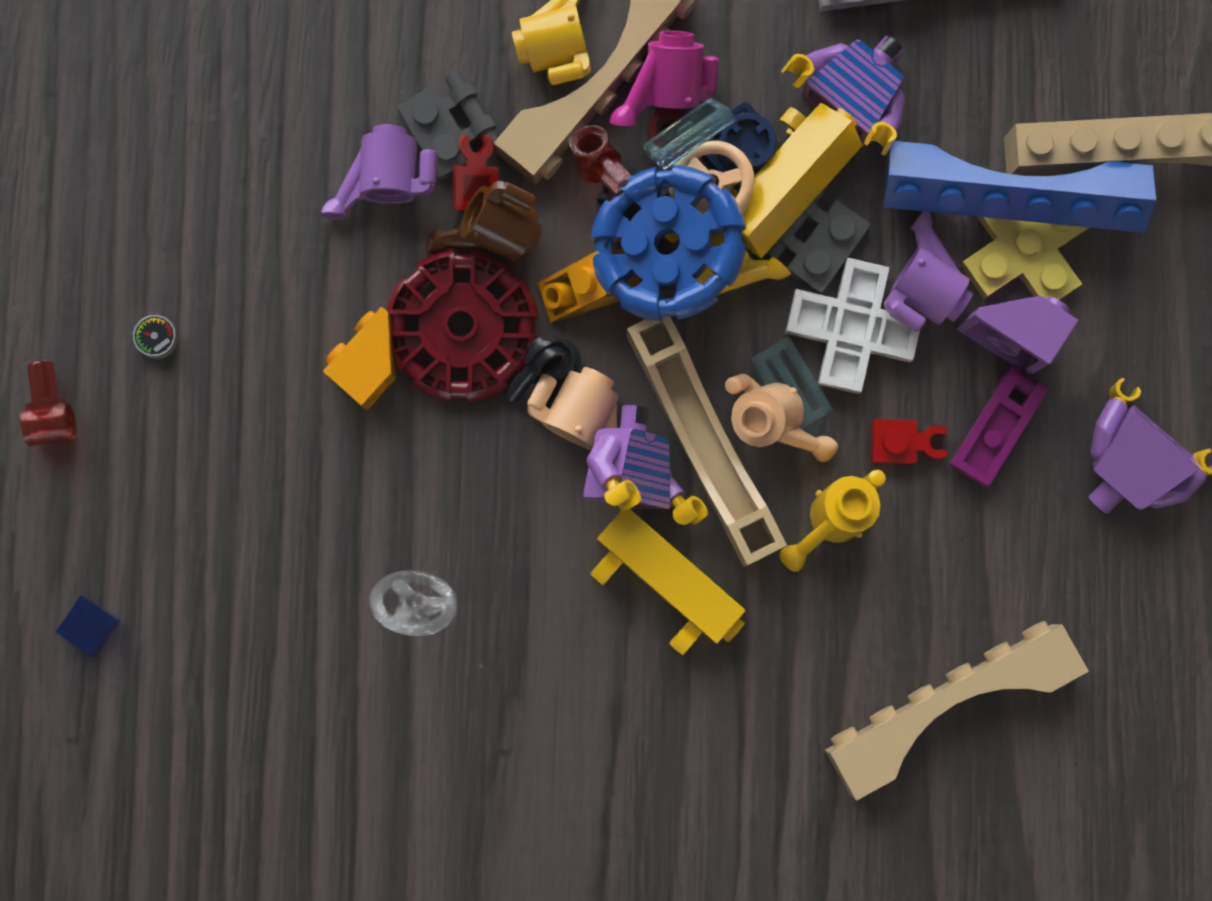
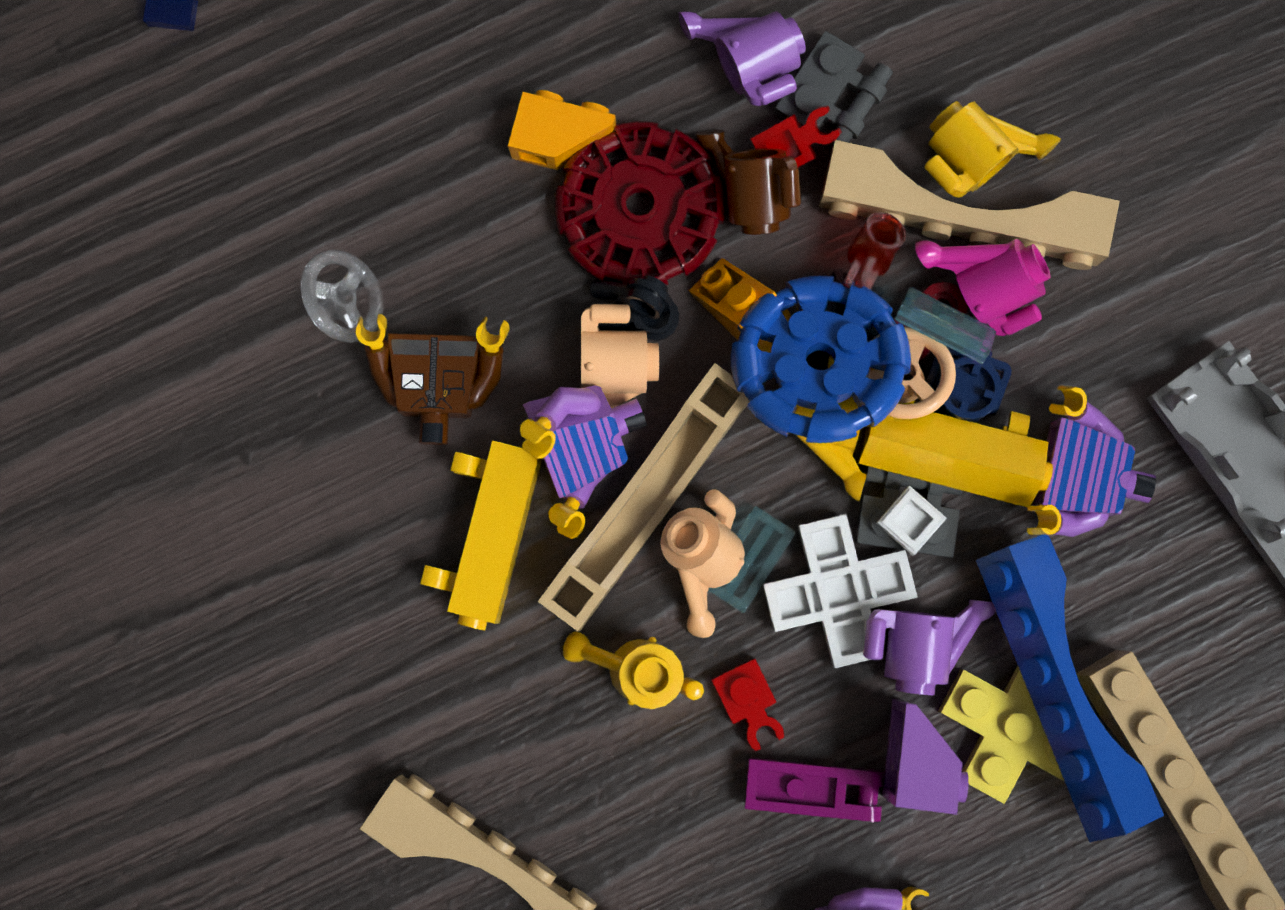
camera: 70 degrees right, 0 degrees up
(516, 559) = (434, 373): none -> reddish brown torso
(827, 240) = (911, 520): none -> white tile

